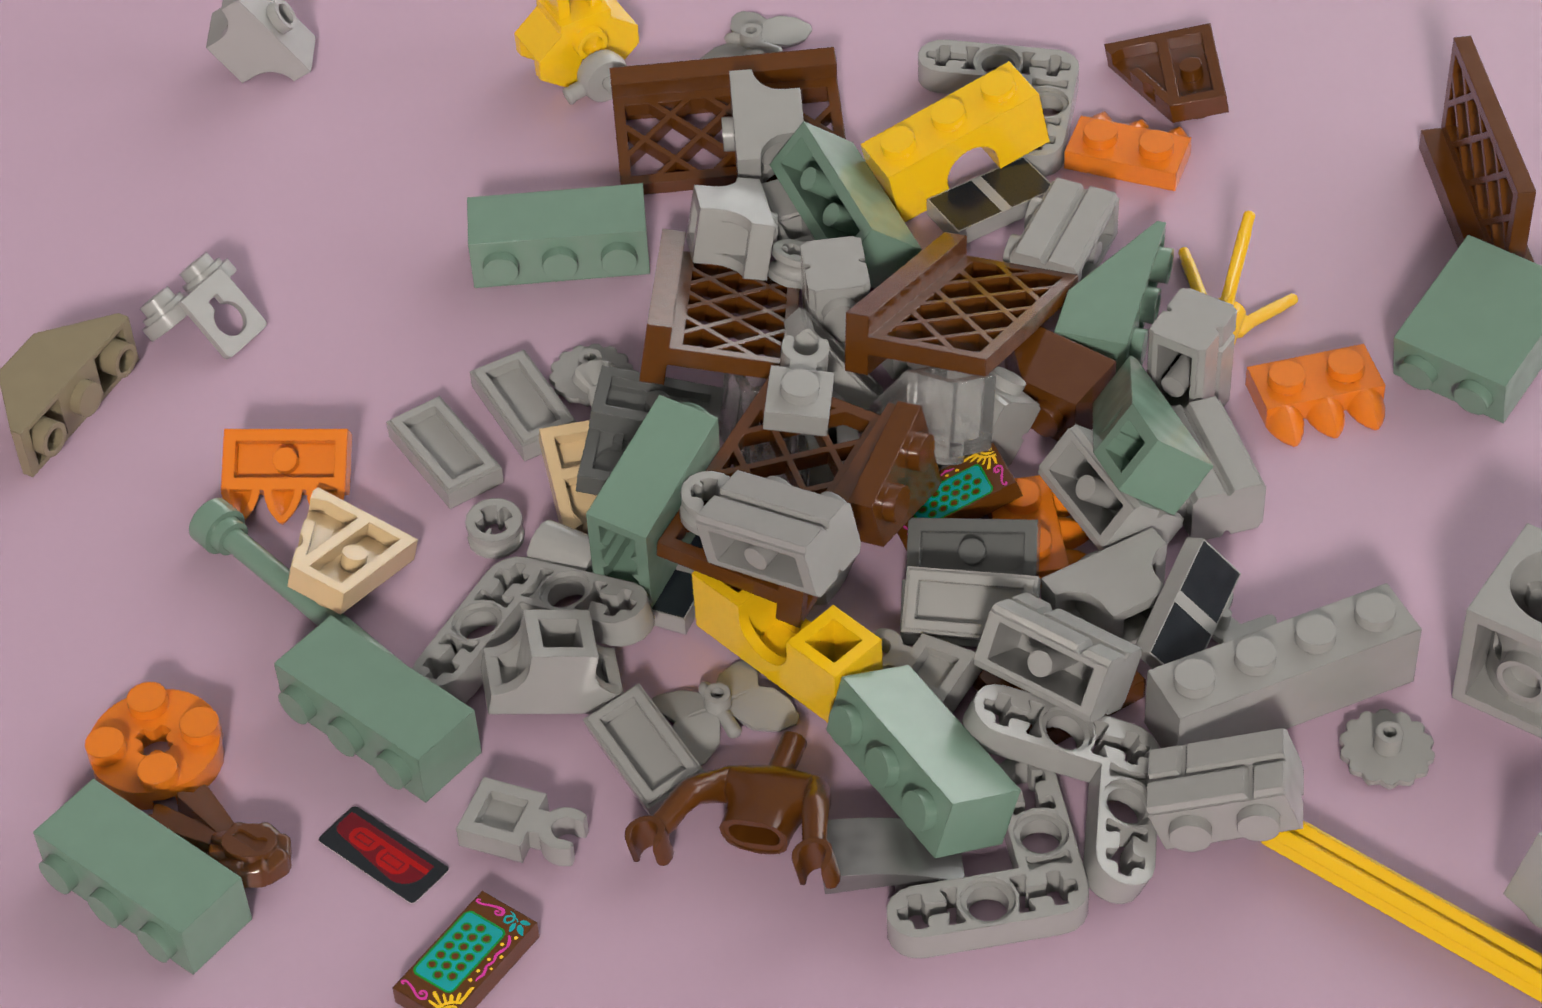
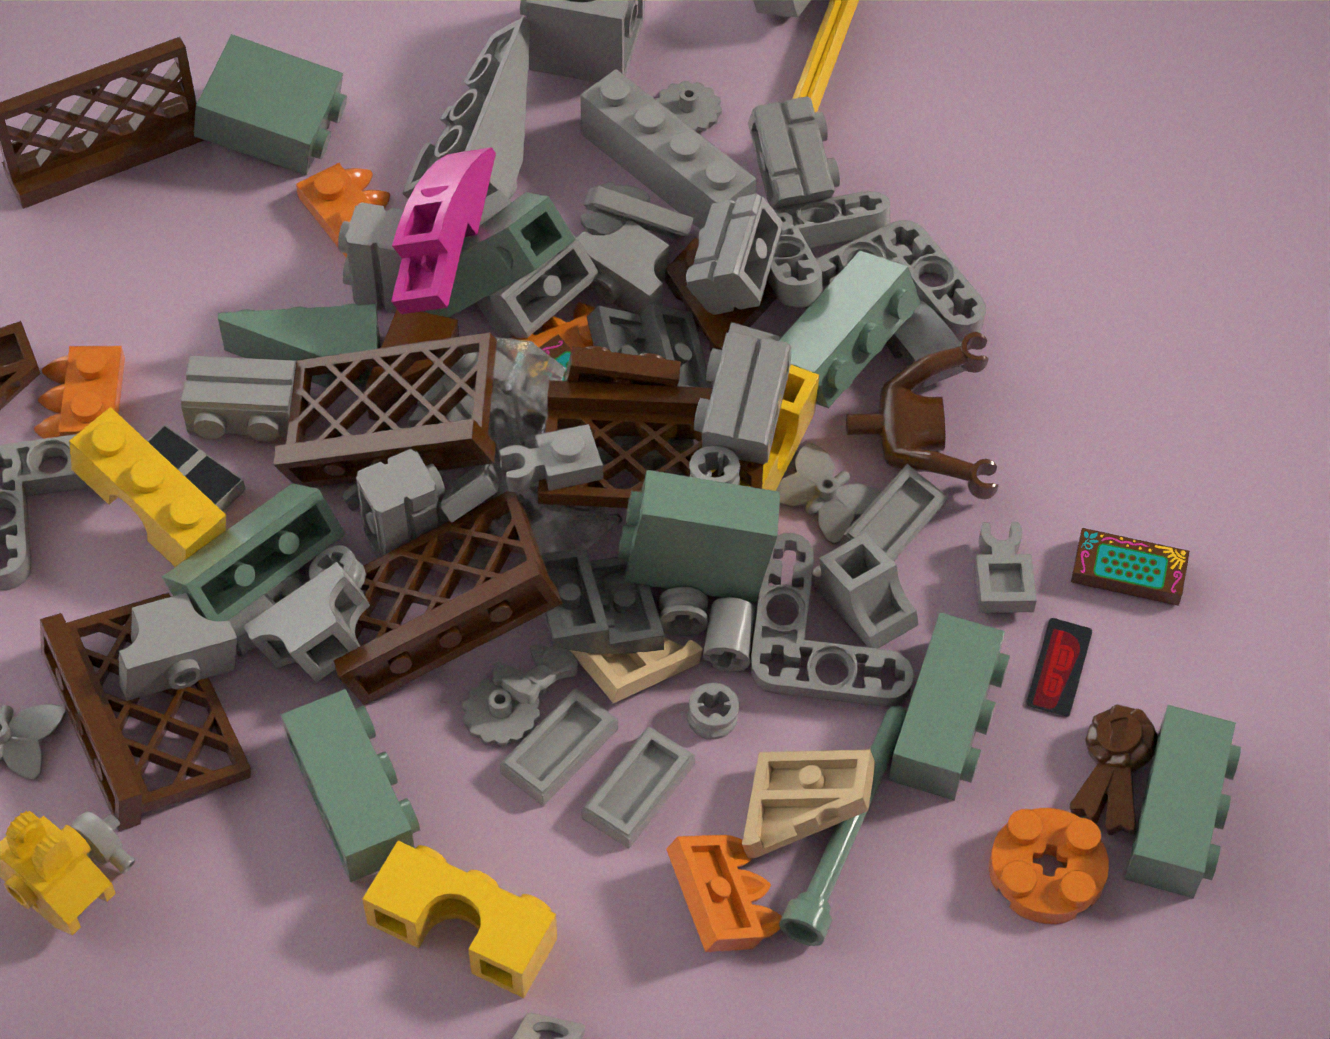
camera: 115 degrees left, 10 degrees up
(343, 309) = (422, 889): none -> yellow arch
(957, 601) = (682, 335): light grey tile -> none
(1198, 370) = (433, 226): none -> dark pink slope
(1244, 322) = (296, 278): yellow plant -> none
(1346, 494) = (489, 112): none -> light grey wedge

